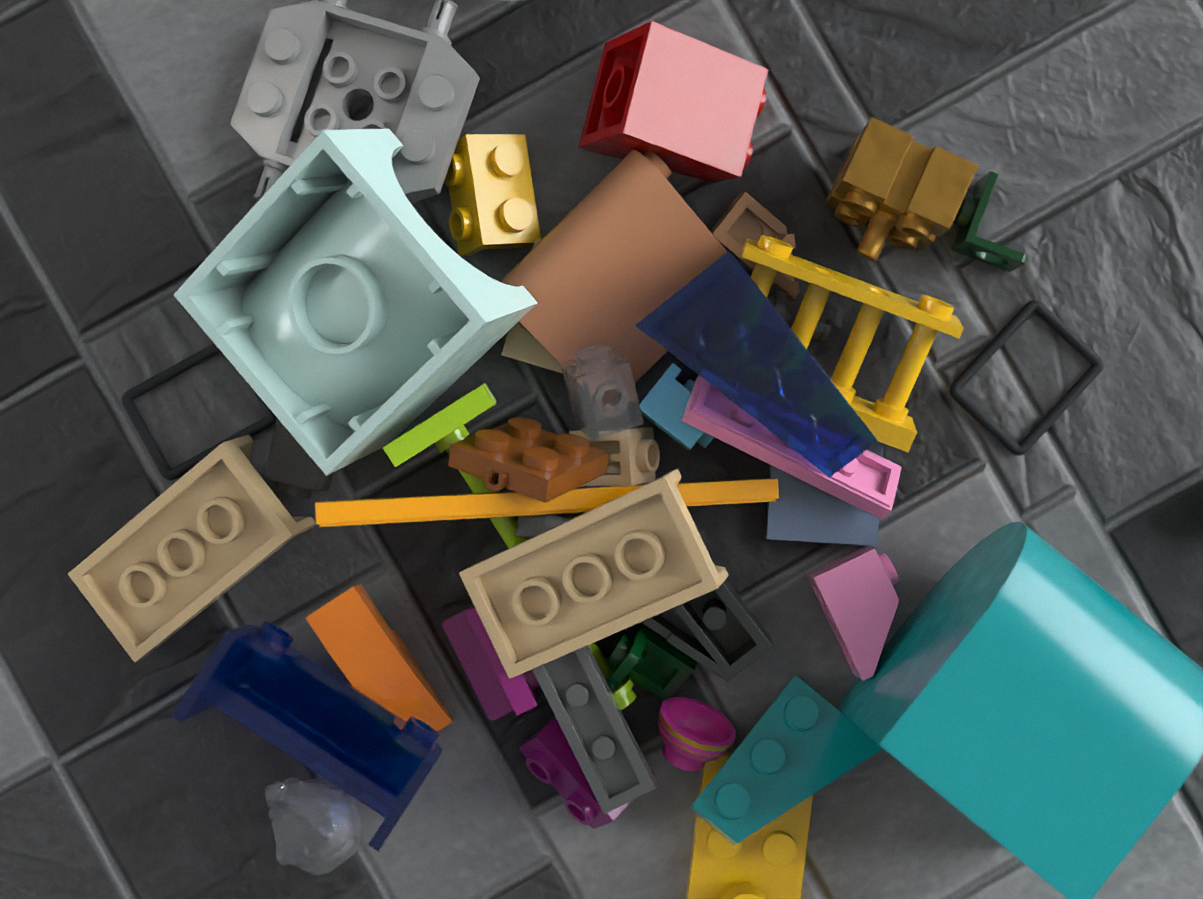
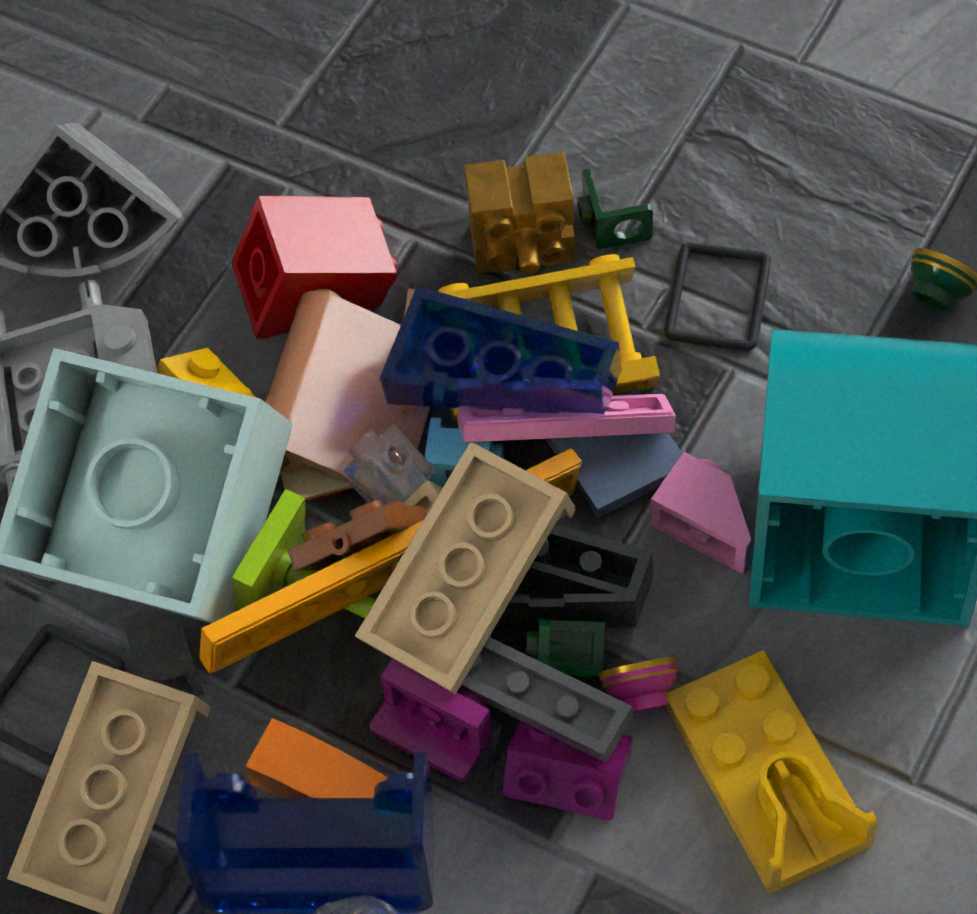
camera: 30 degrees left, 30 degrees down
(781, 762) = (727, 652): teal wing -> none

